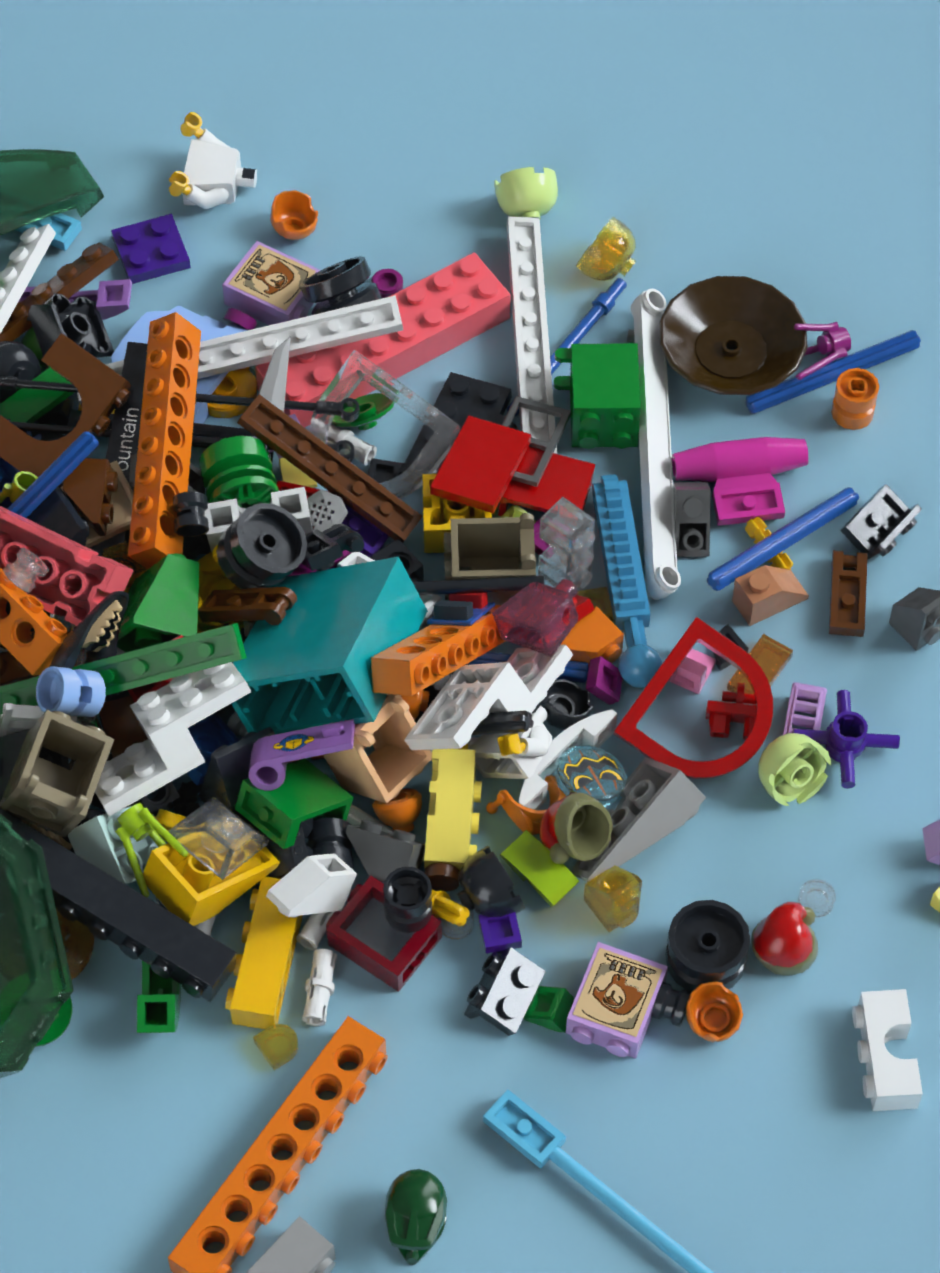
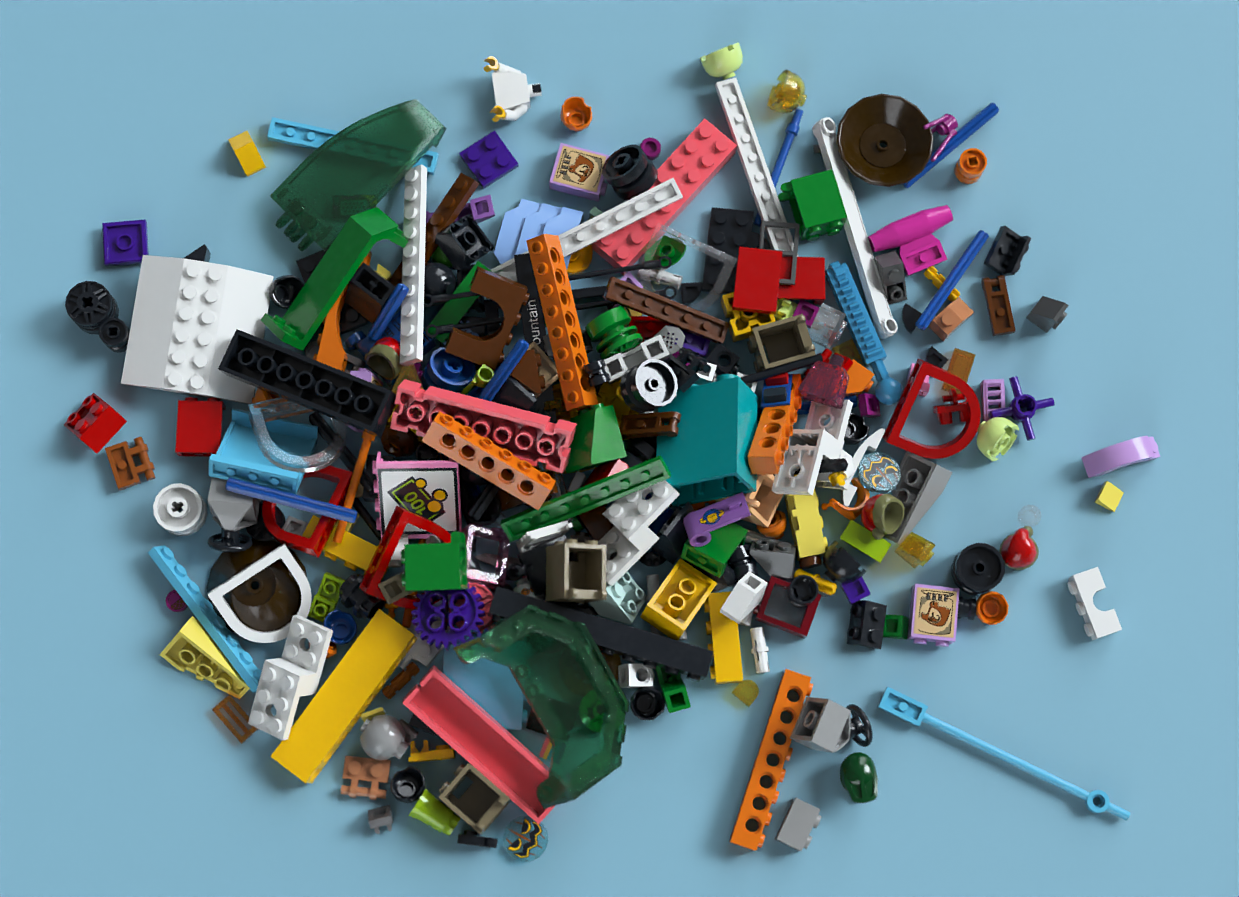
camera: 20 degrees left, 20 degrees up
(25, 570) = (515, 446): clear wheel -> none
(70, 691) = (569, 520): light blue wheel -> none
(93, 975) = (628, 679): none -> white brick
(95, 633) = (567, 481): black animal -> none
(110, 1016) = (647, 703): none -> black hair
(140, 823) = (631, 586): lime plant -> none
(168, 819) = (641, 571): yellow plate -> none
(218, 837) = (679, 581): clear slope -> none
(240, 319) = (567, 202): magenta tile -> none
(275, 379) = (614, 259): light grey bar -> none
(385, 1117) = (829, 726): none -> light grey piece
(702, 589) = (910, 317): none -> black tile

